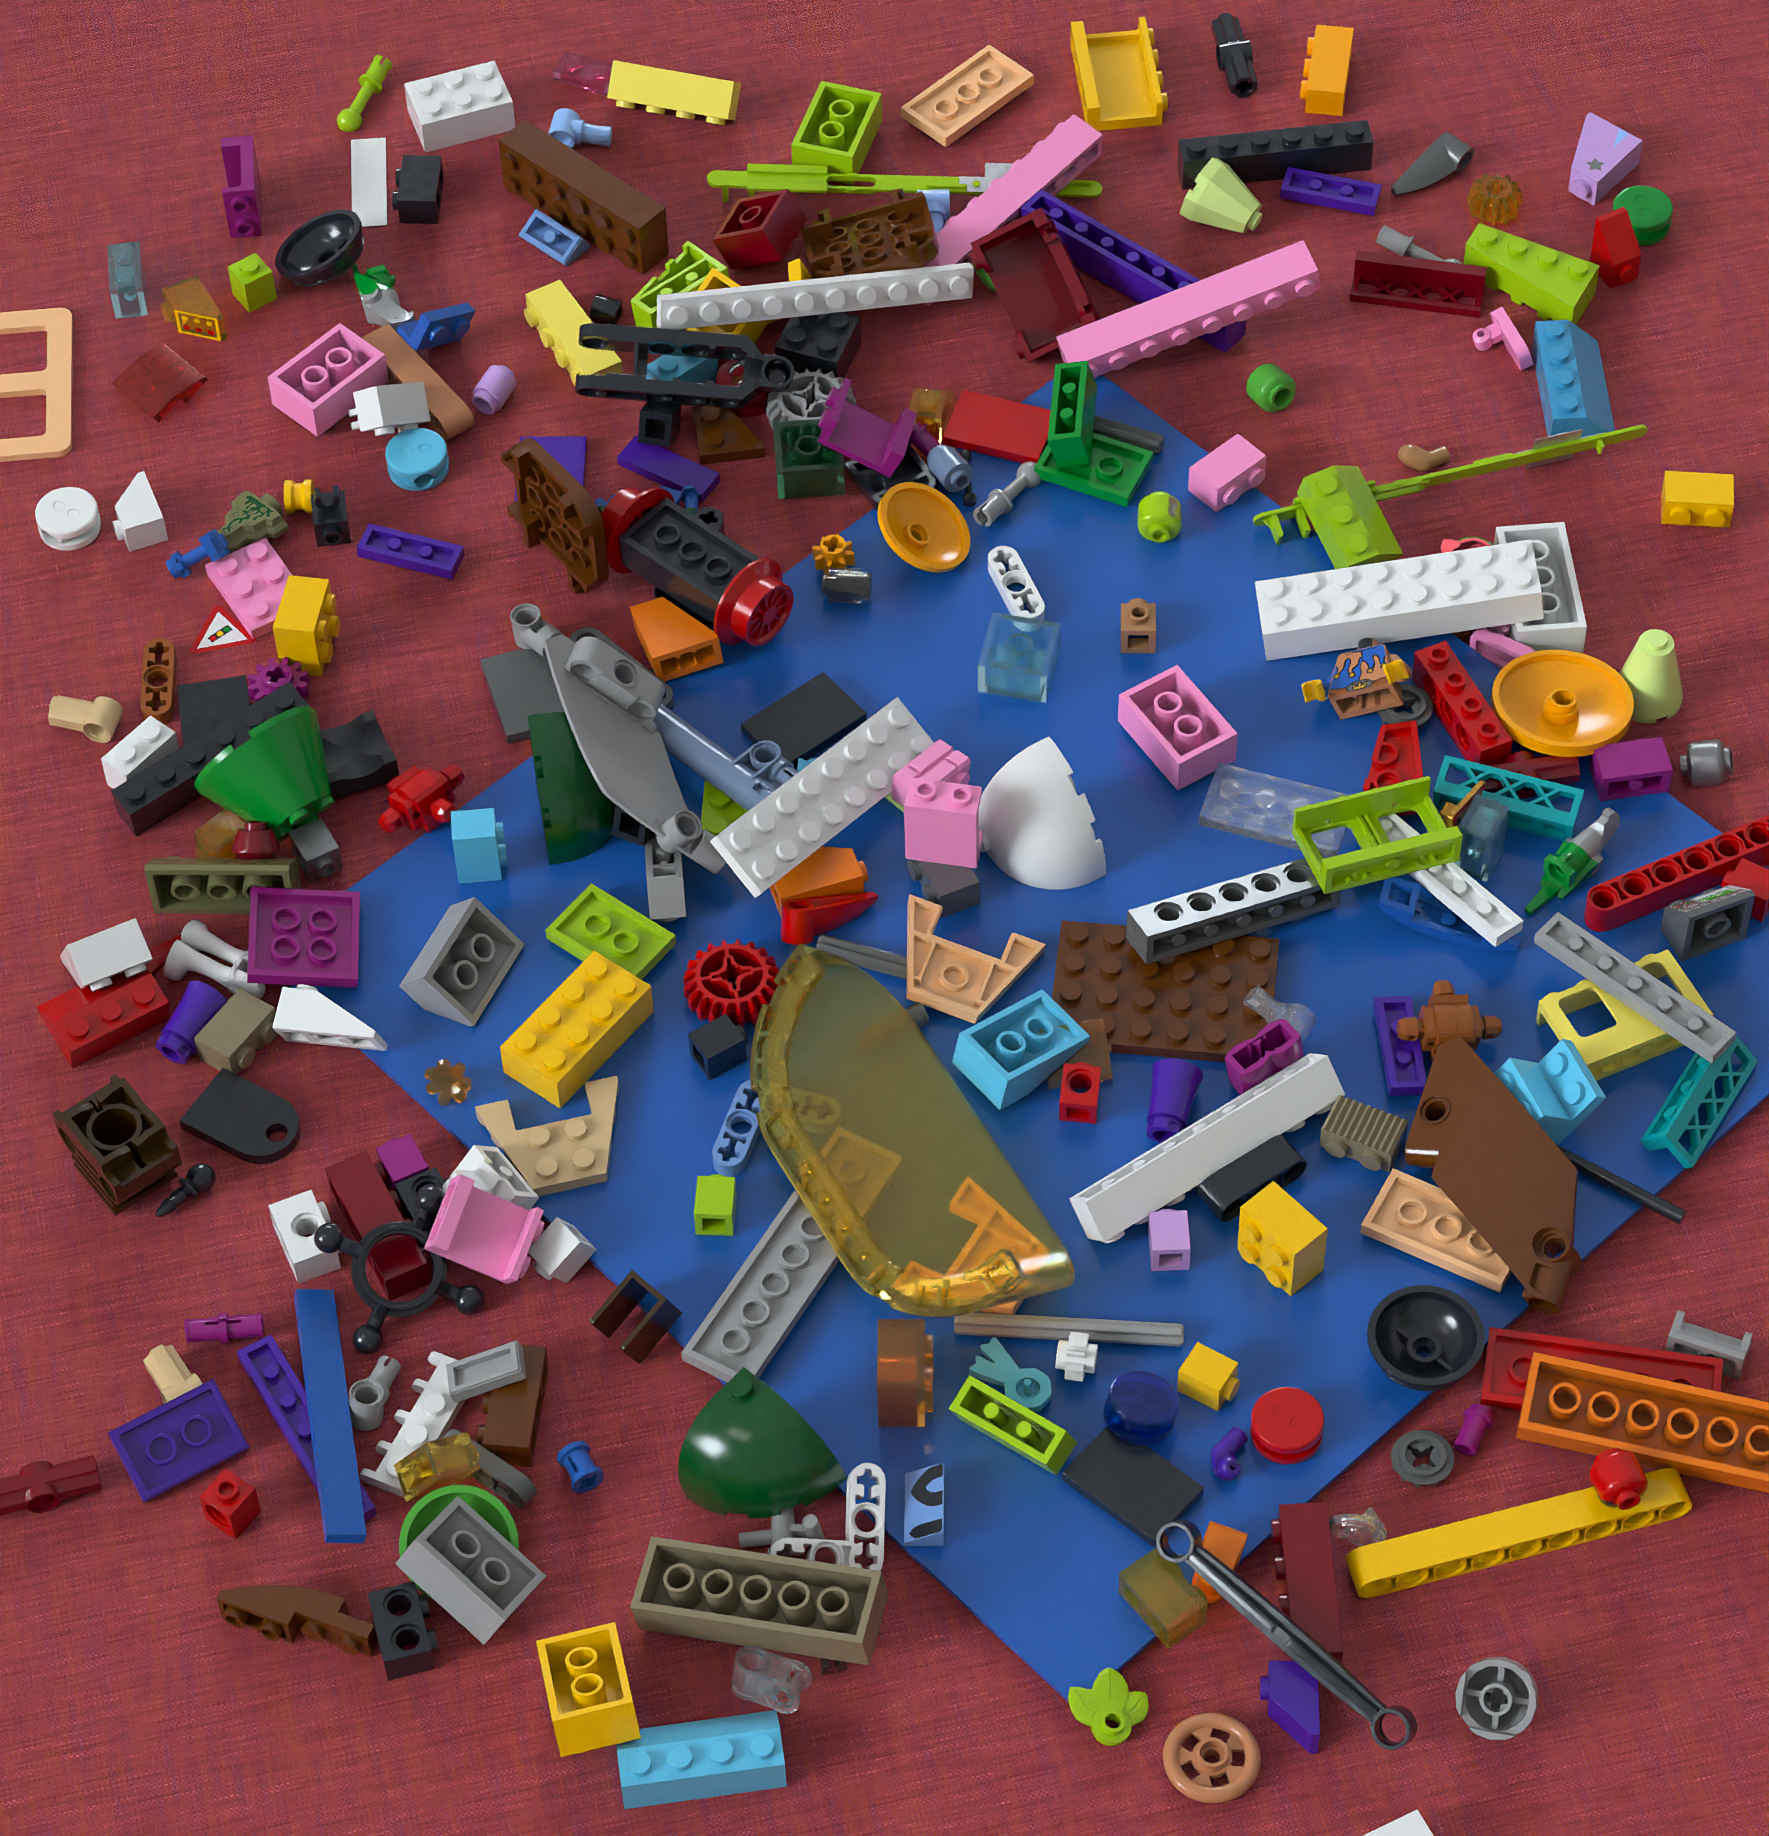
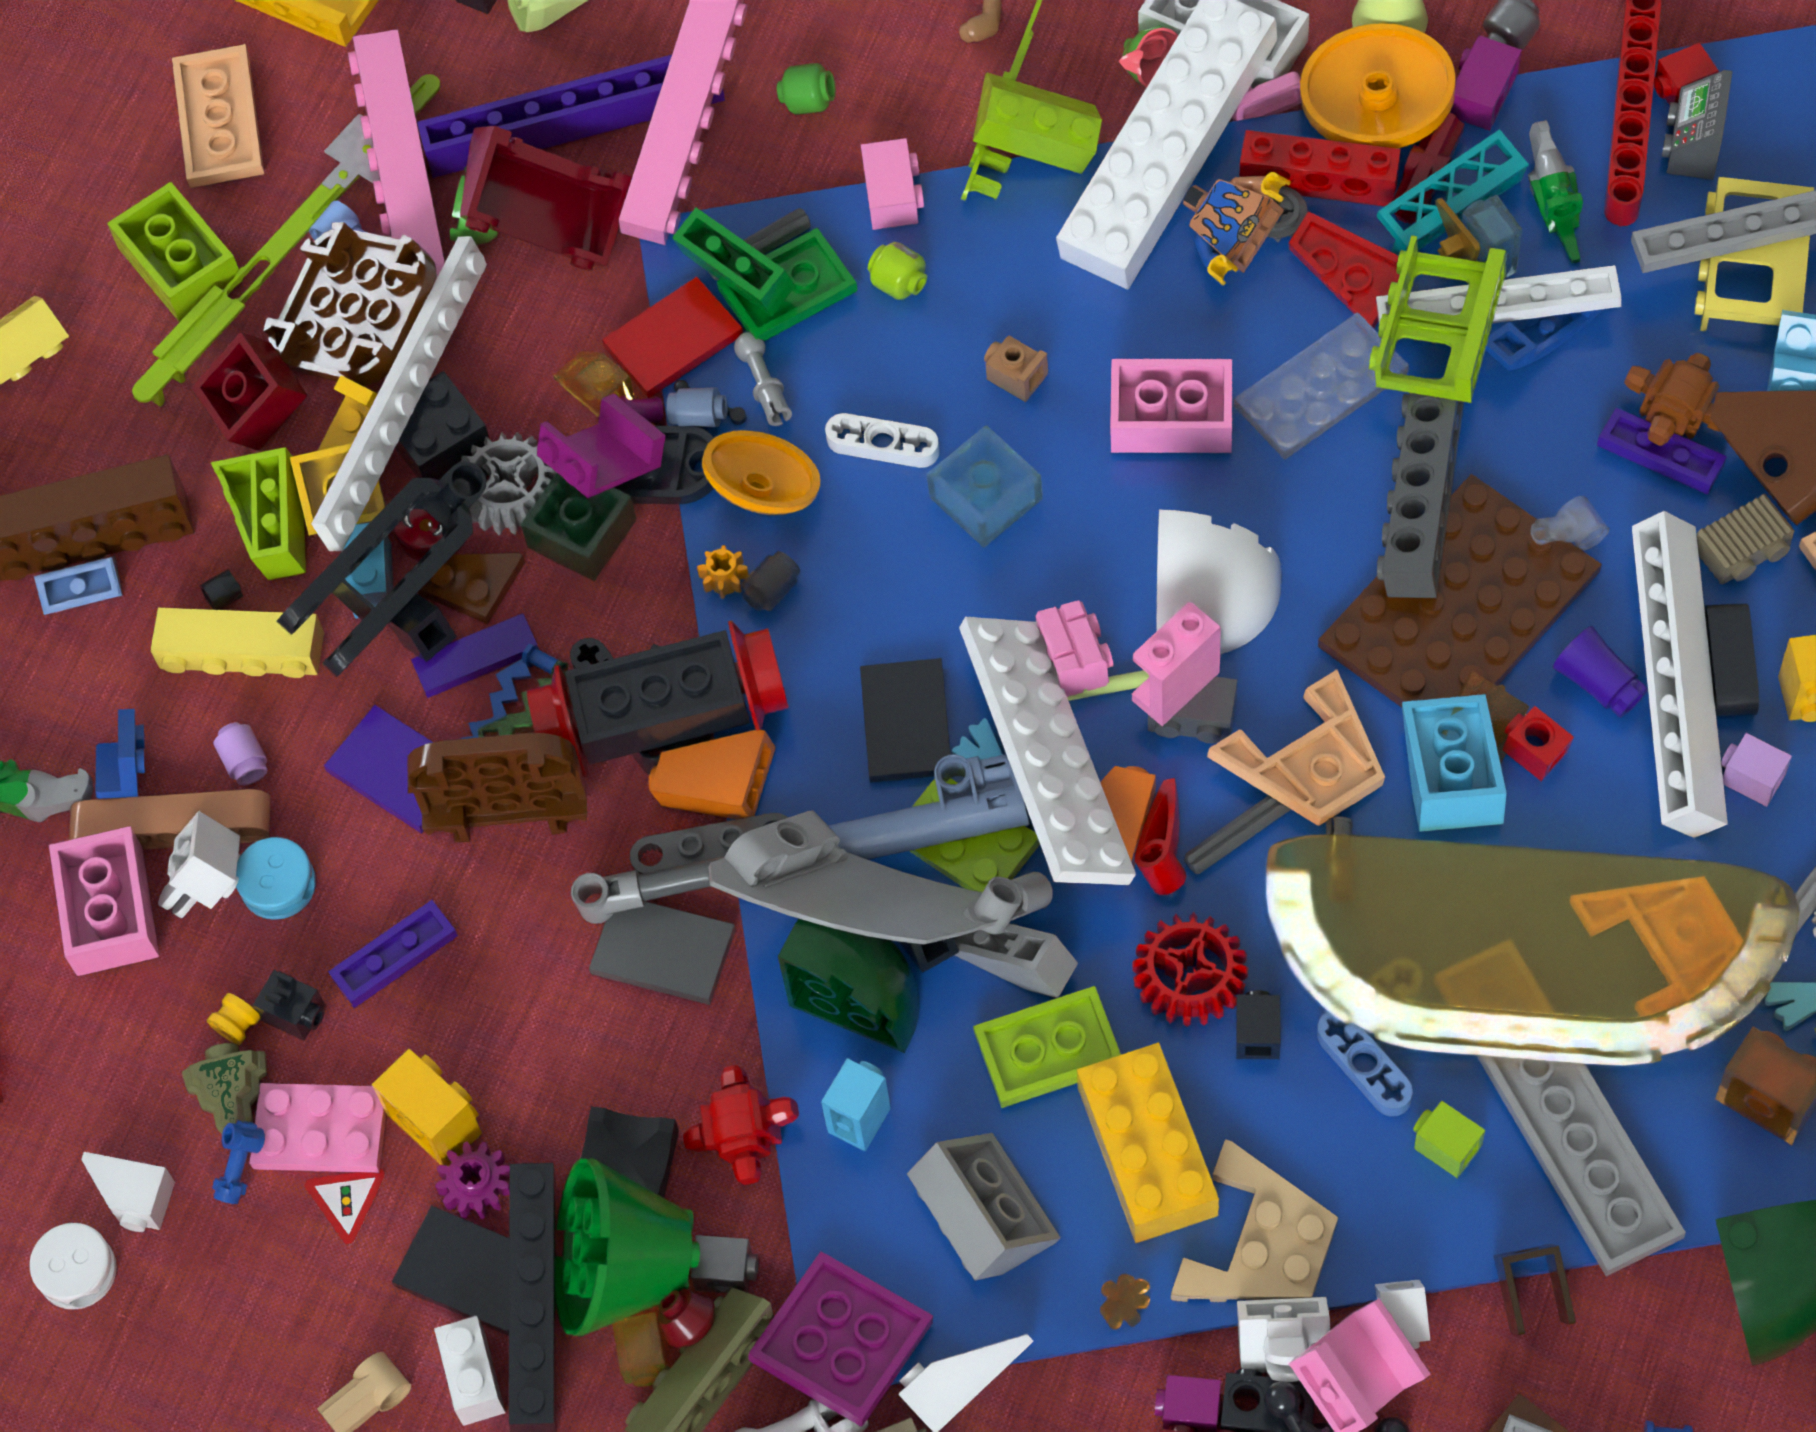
camera: 50 degrees left, 10 degrees up
(152, 670) = (388, 1323): dark orange beam -> none
(1265, 1055) = (1614, 566): magenta brick -> none

